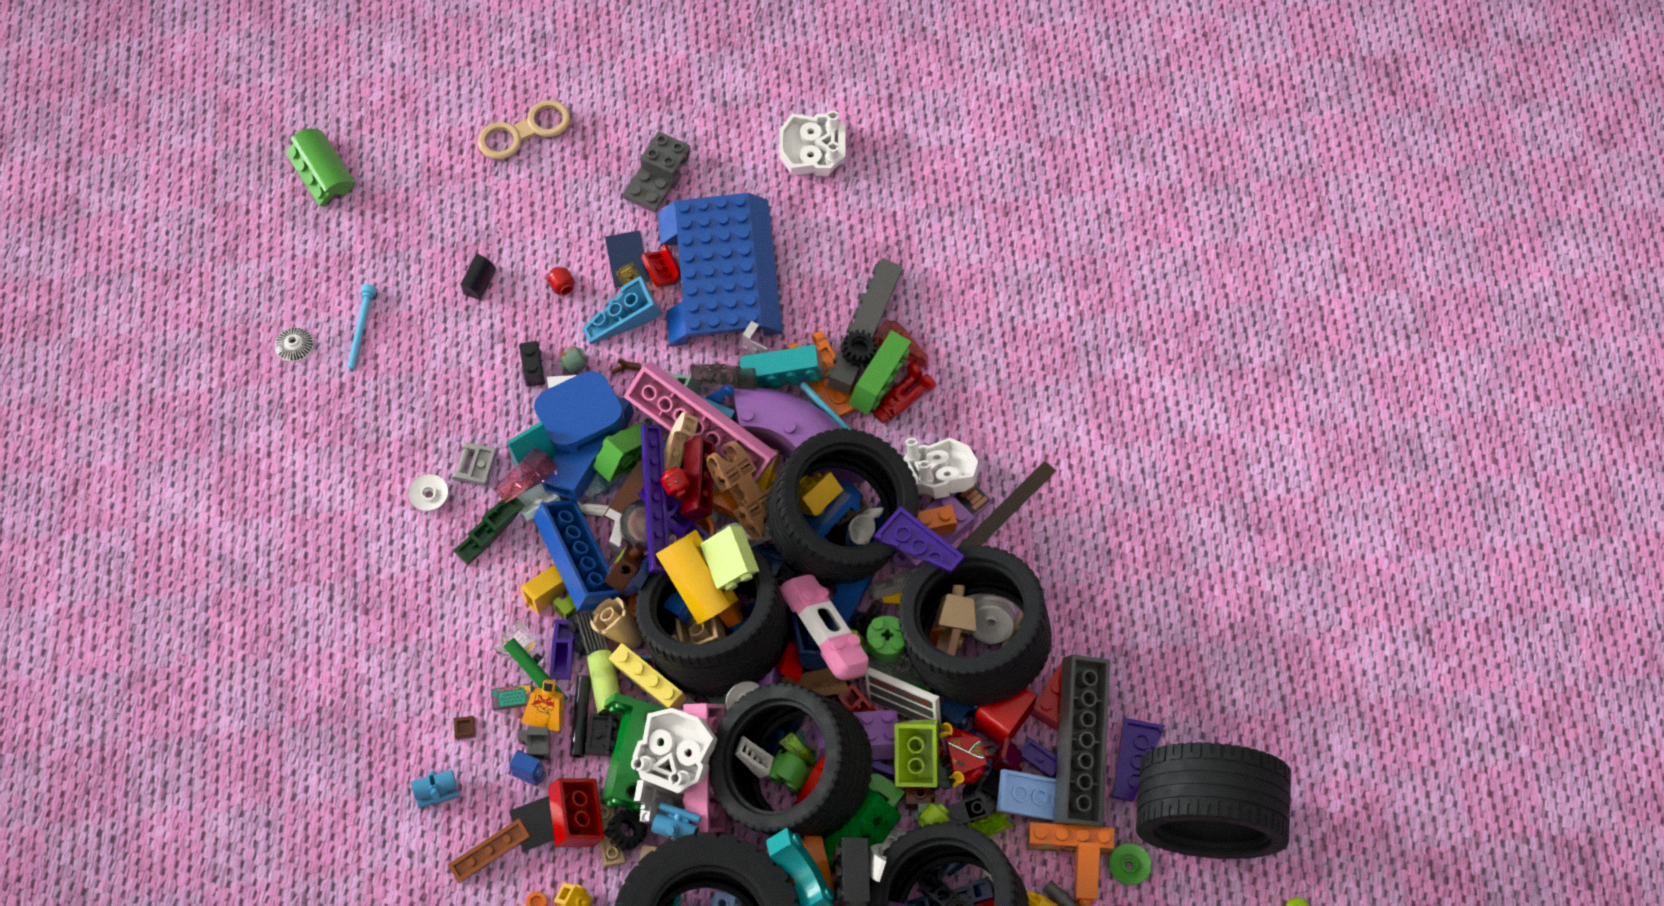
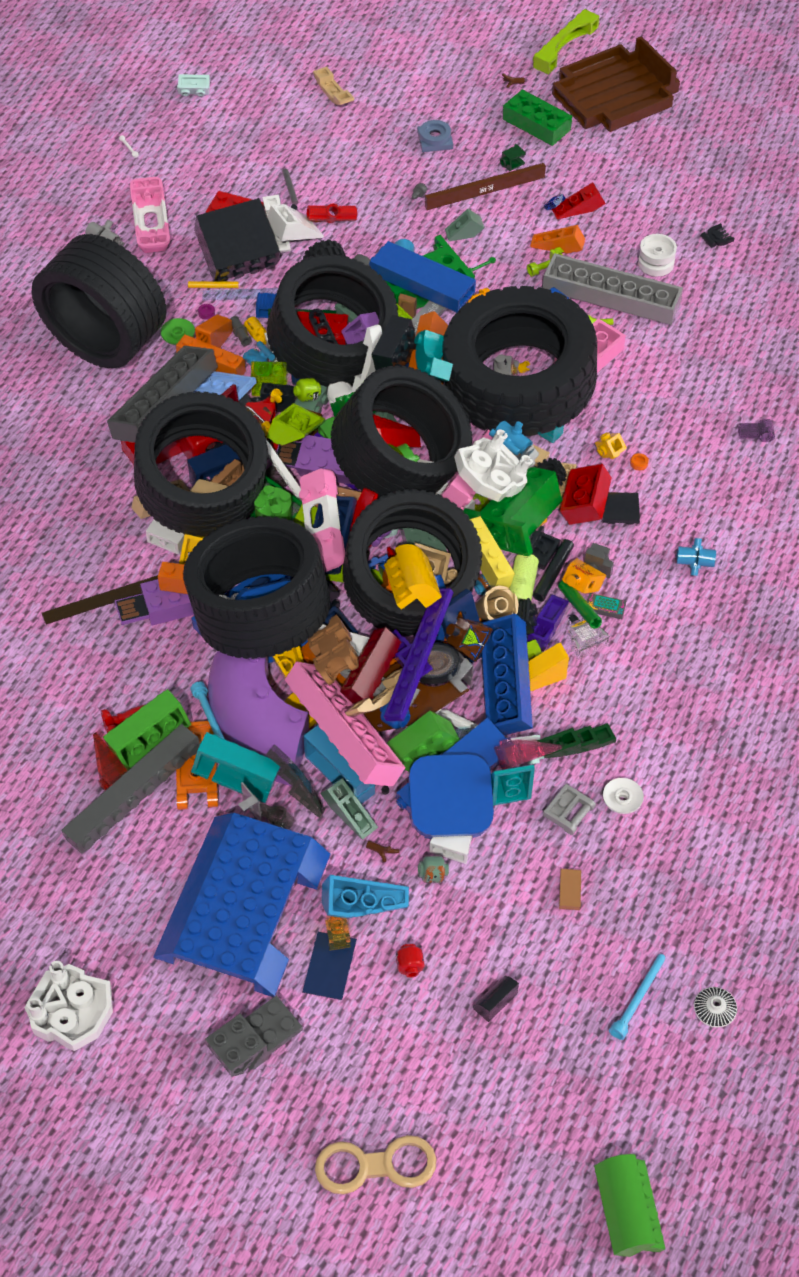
camera: 155 degrees left, 10 degrees down
(448, 394) = (570, 889): none -> medium nougat tile
(464, 727) = (655, 598): reddish brown tile -> none
(489, 850) = (665, 498): dark orange plate -> none
(527, 768) = (614, 537): blue brick -> none
(531, 363) = (475, 880): black brick -> none
(662, 267) = (299, 933): red bracket -> none
(675, 482) = (394, 658): red head -> none
(719, 395) = (314, 767): blue hinge -> none
(726, 351) = (274, 815): none -> clear smoke axle
(729, 558) = (379, 566): yellowish green brick -> none
(863, 339) = (155, 758): black tyre -> none
(916, 539) = (213, 512): dark purple wing -> none
(941, 467) = (128, 630): white brick -> none
(1016, 851) = (255, 355): none -> dark azure pin
(1136, 740) = (114, 399): dark purple wing -> none

